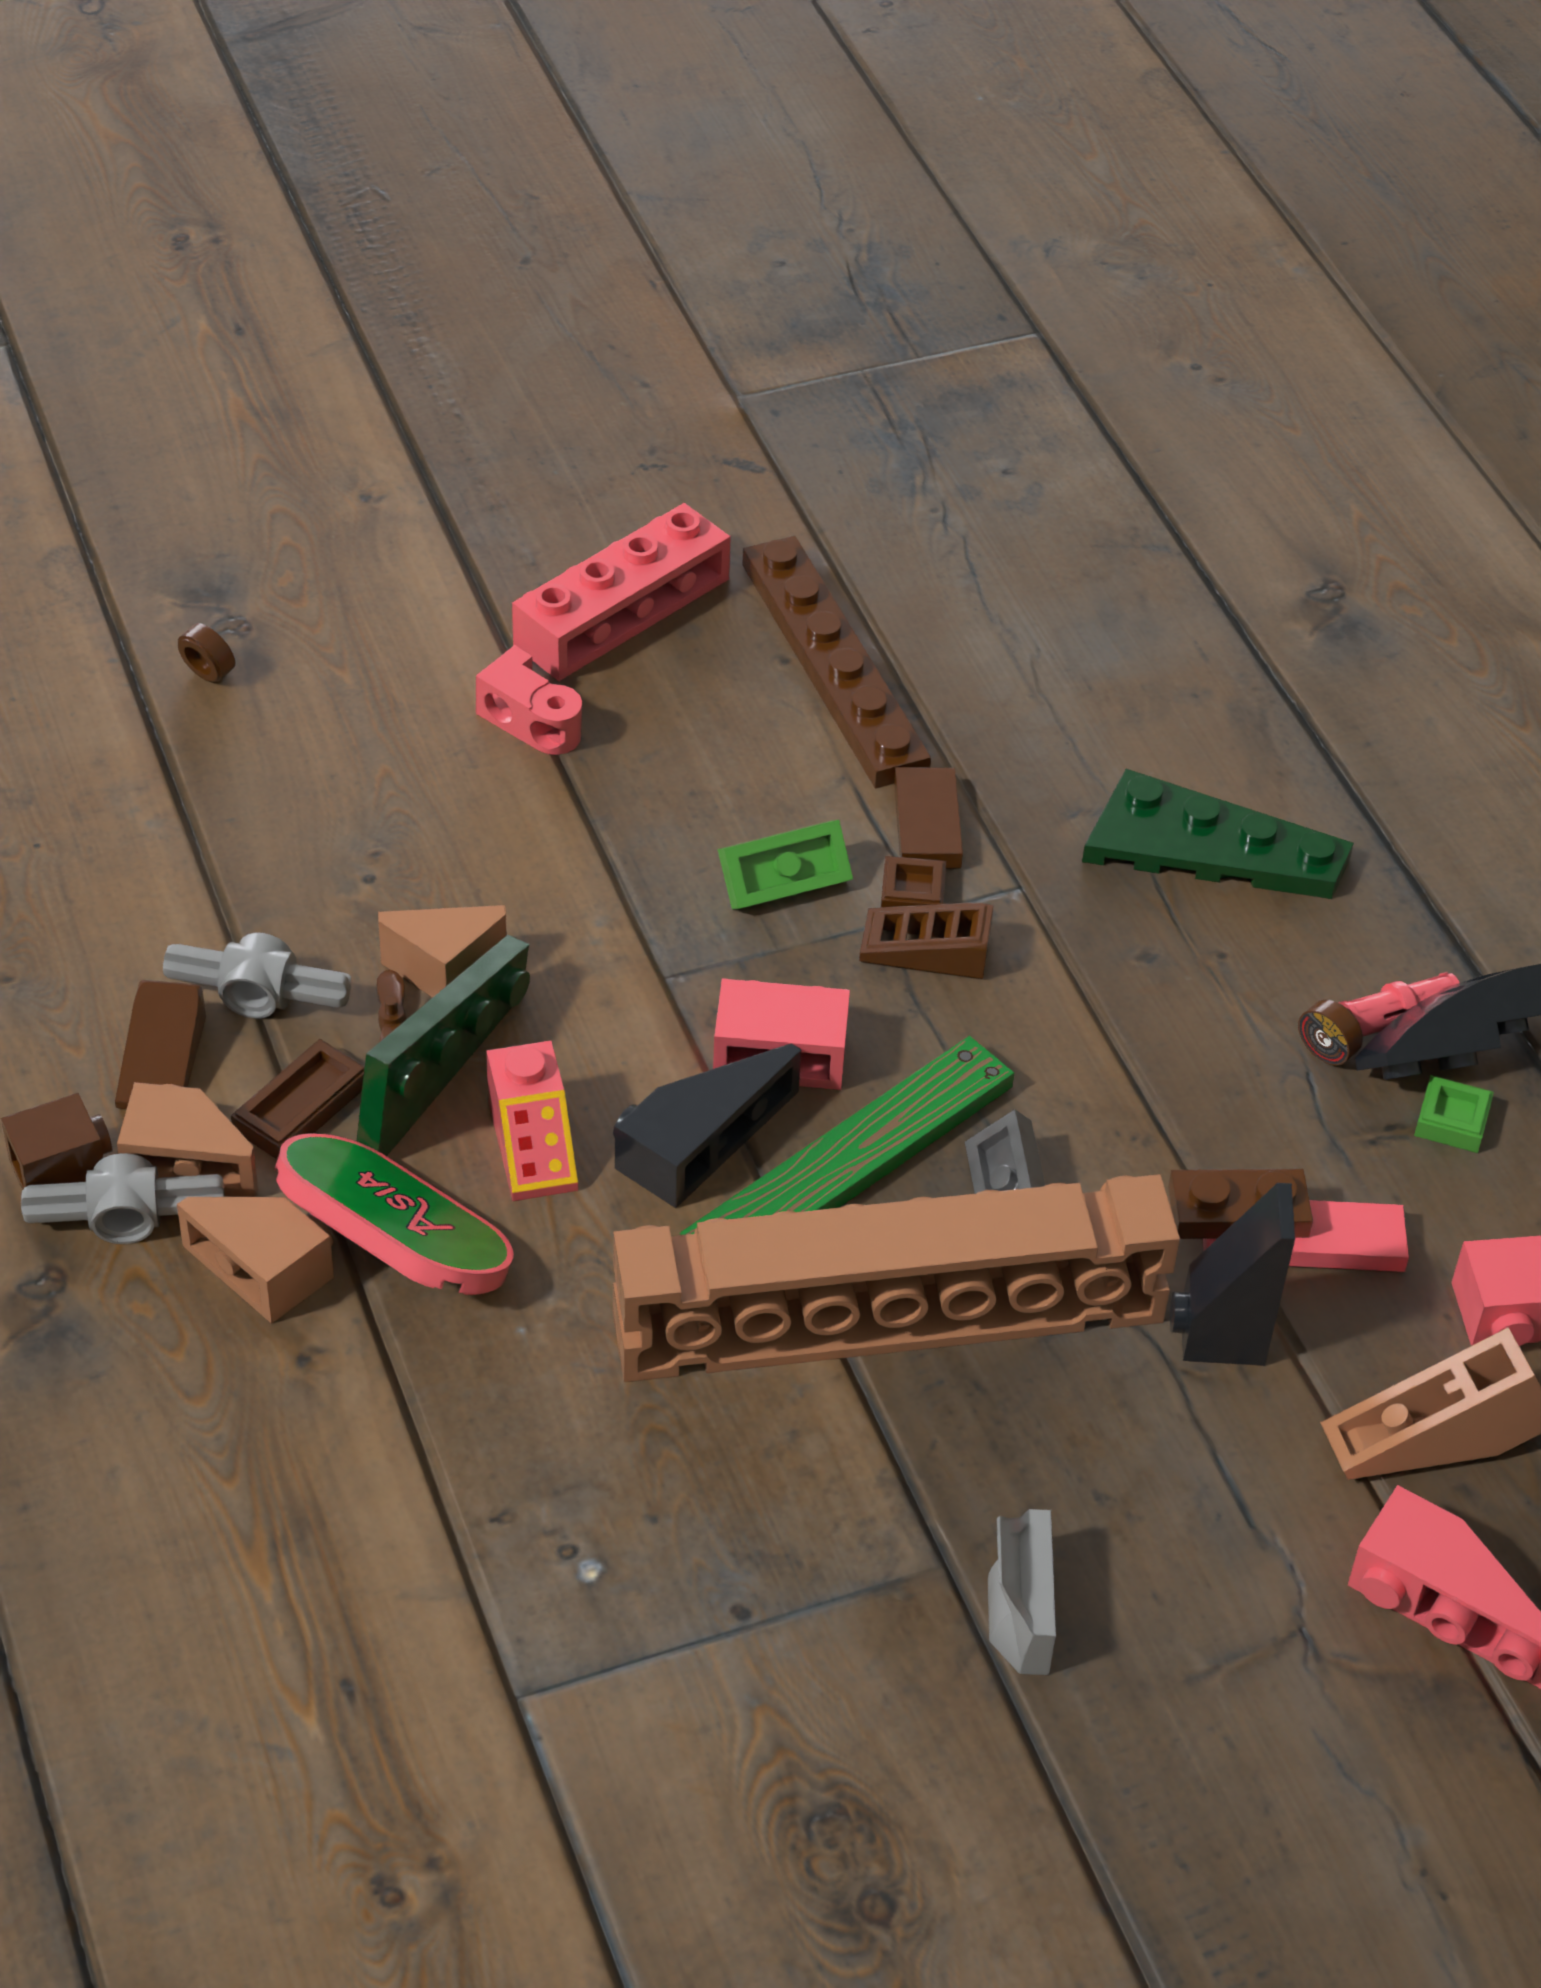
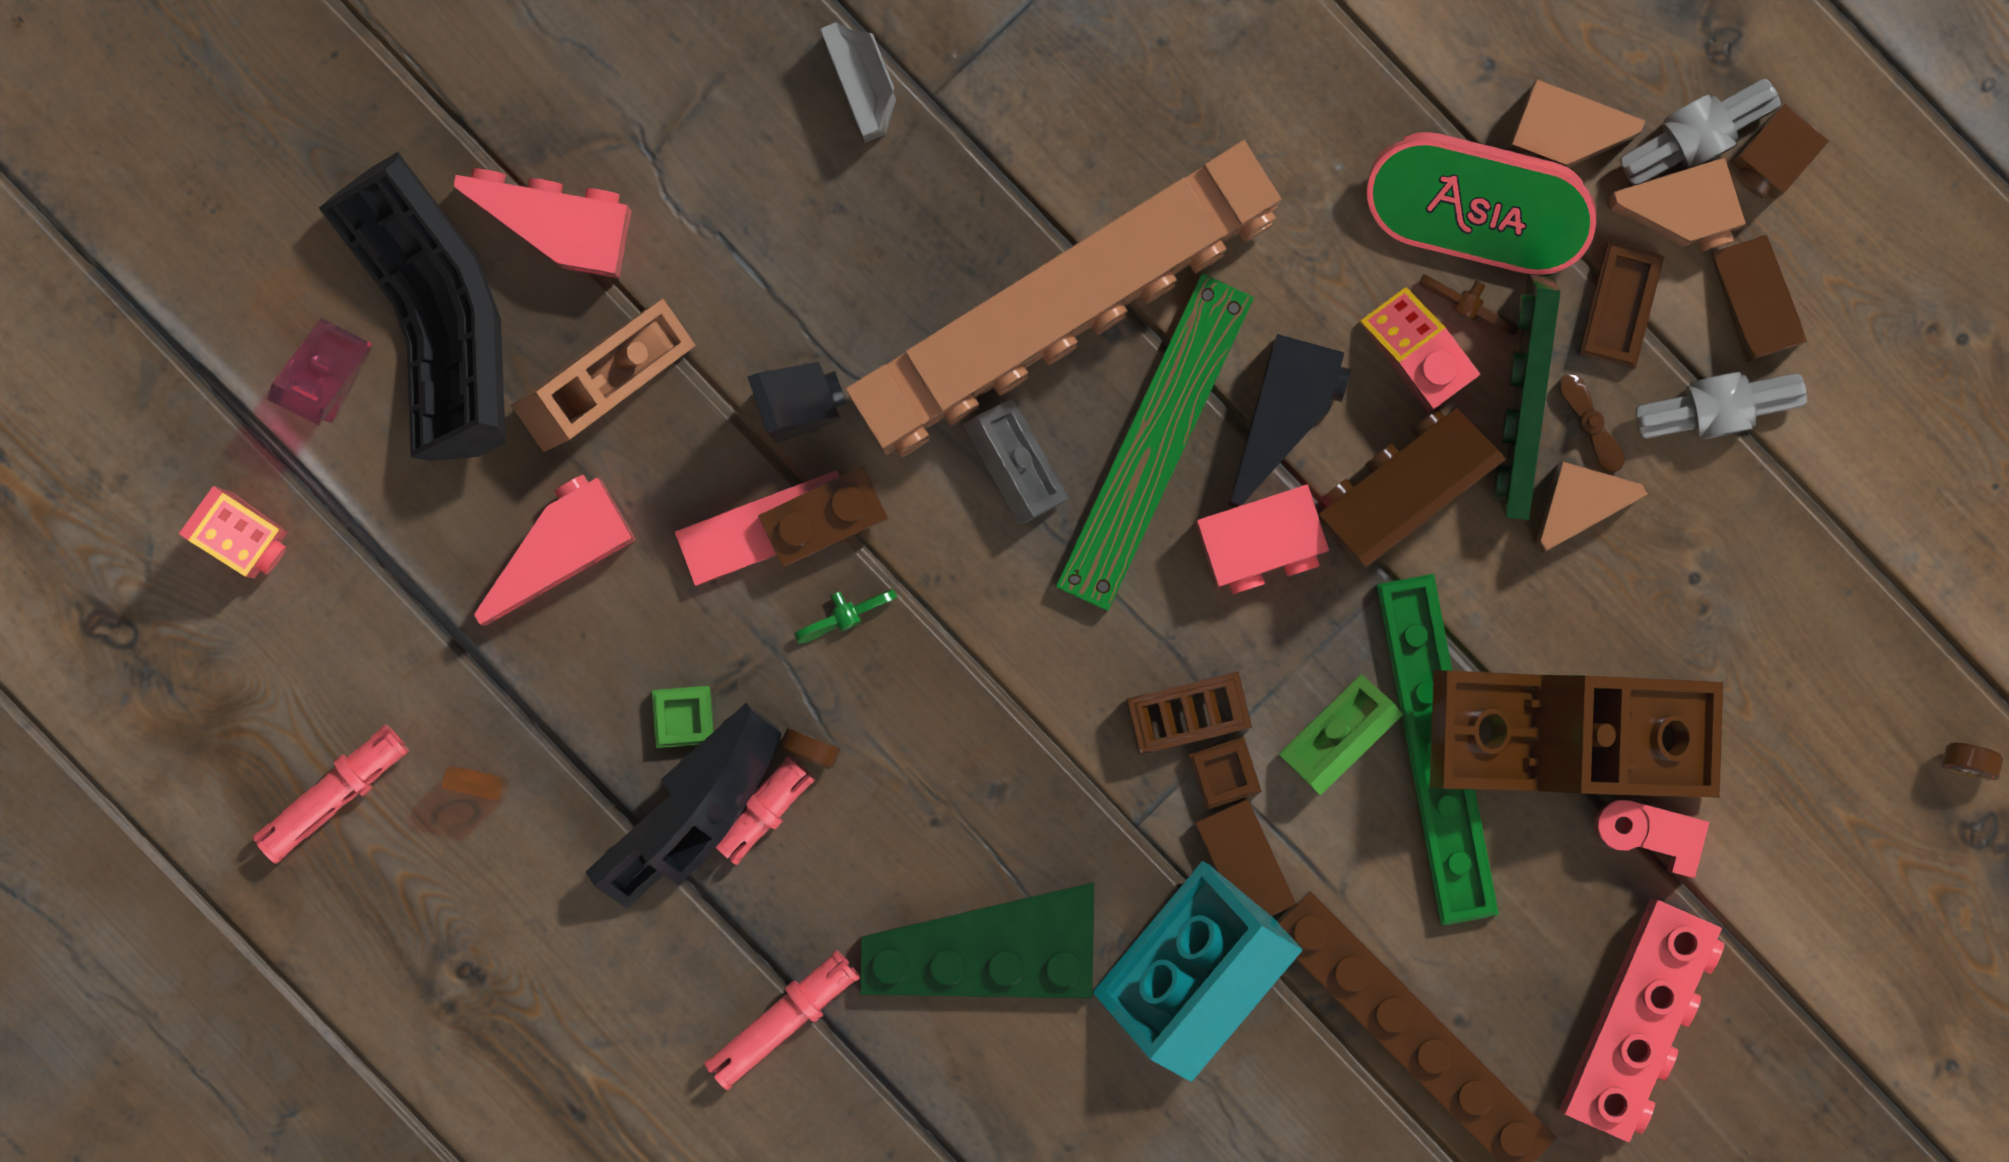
camera: 160 degrees right, 40 degrees up
(453, 1152) = (1468, 302): none -> reddish brown piece
(563, 769) = (1576, 734): none -> reddish brown bracket
(615, 993) = (1407, 486): none -> reddish brown slope
(688, 852) = (1447, 816): none -> green tile
(1019, 742) = (1196, 972): none -> teal slope
(1245, 1132) = (843, 616): none -> green piece
(1418, 854) = (780, 1021): none -> coral pin

